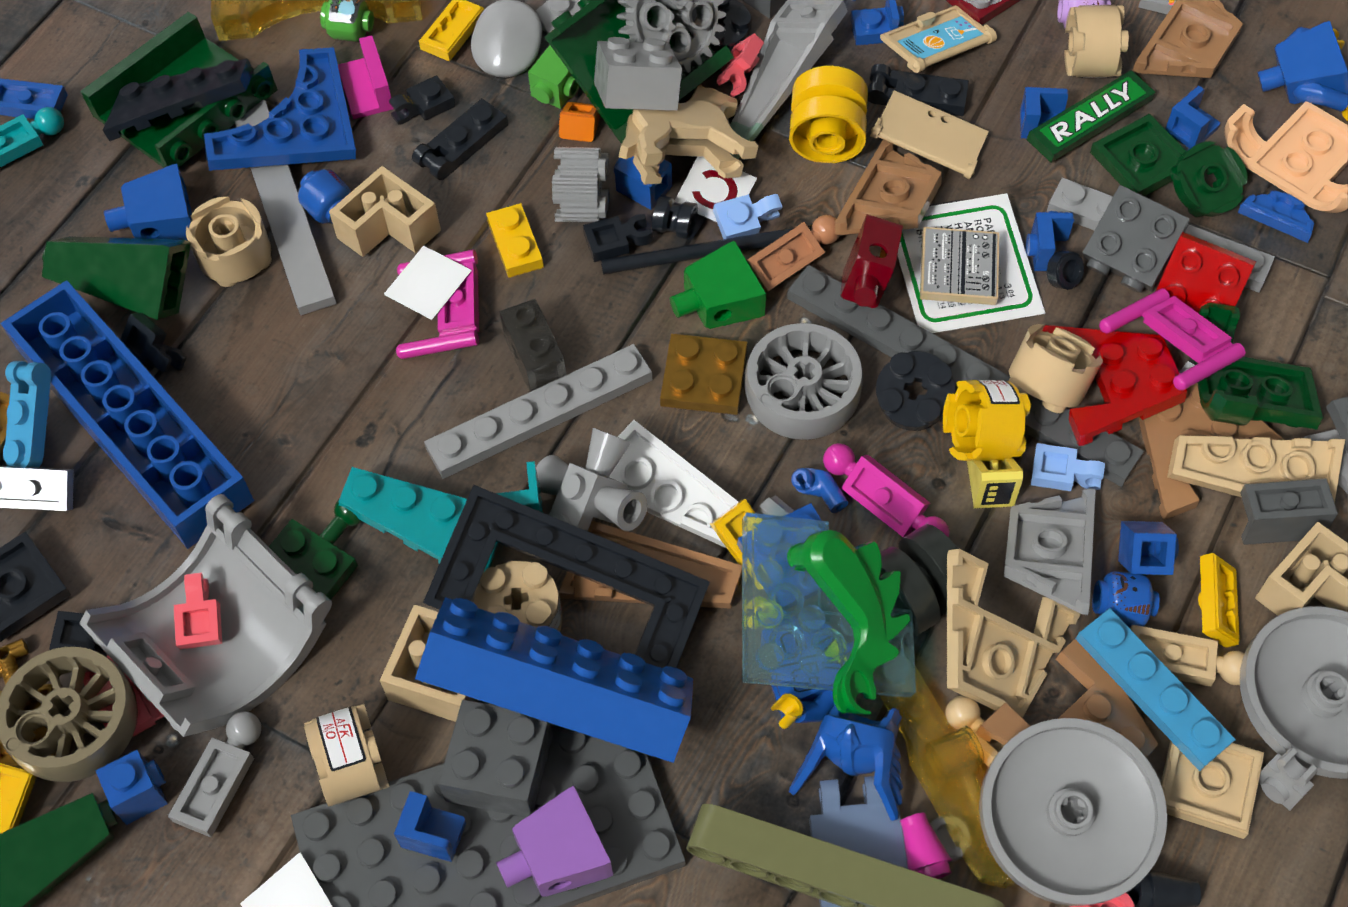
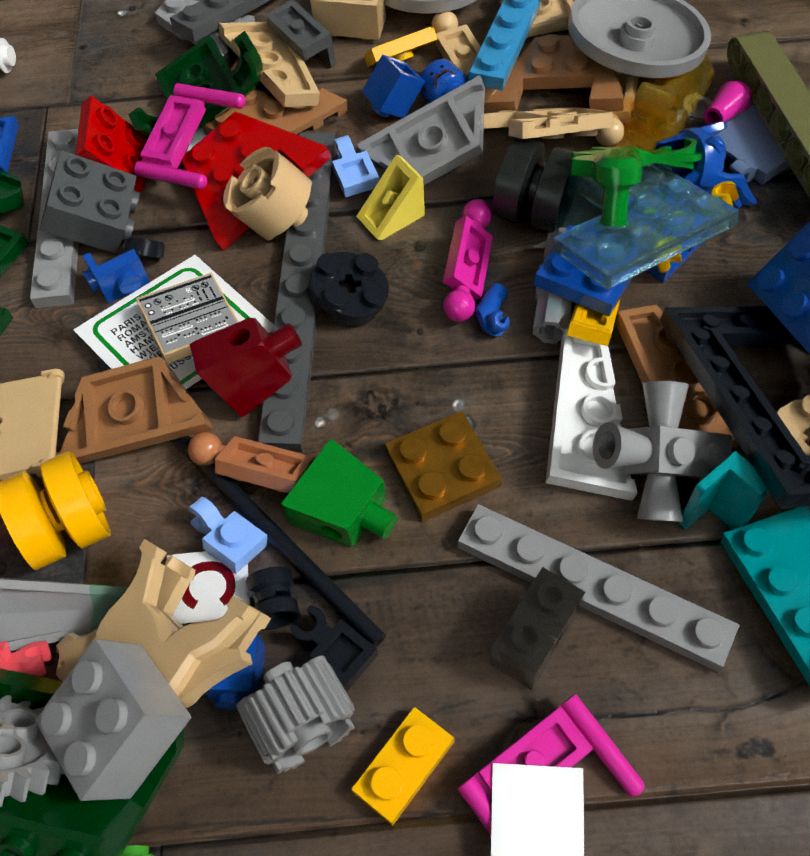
camera: 120 degrees left, 0 degrees up
(578, 122) = (177, 815): orange slope -> none
(803, 381) = (397, 372): light grey piece -> none
(986, 420) = (357, 208): yellow brick -> none

